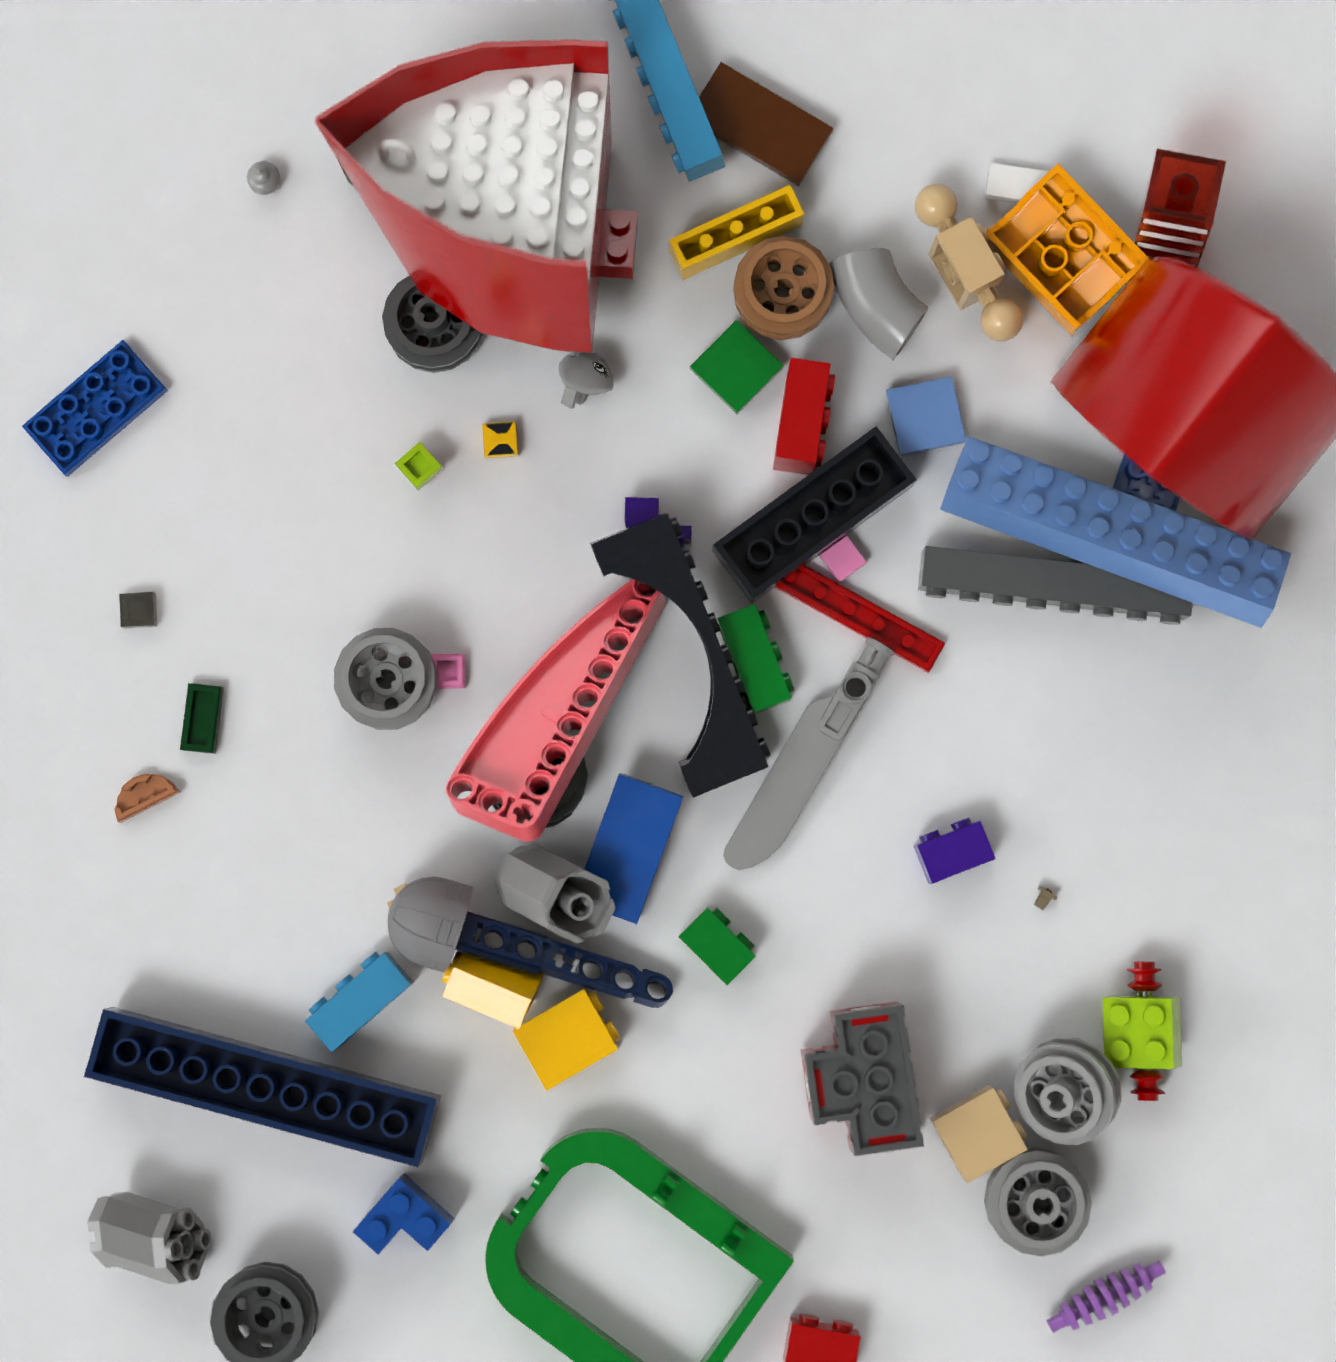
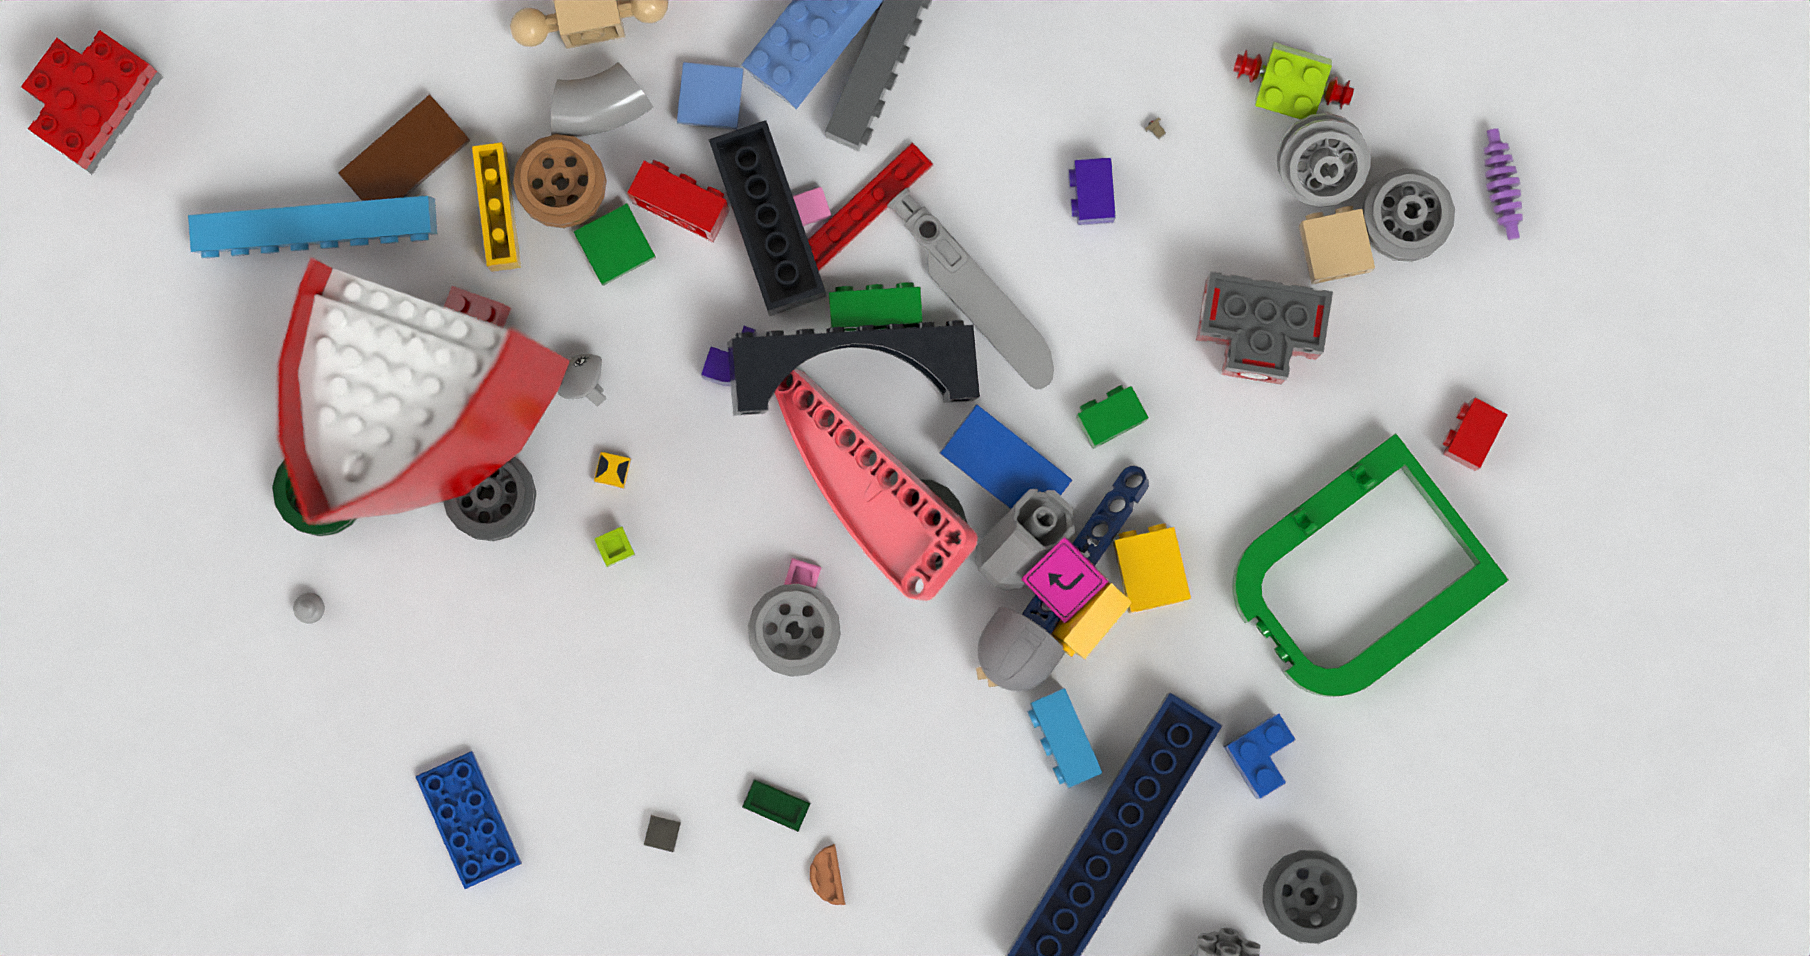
camera: 75 degrees left, 0 degrees up
(520, 948) = (1064, 579): none -> dark pink piece

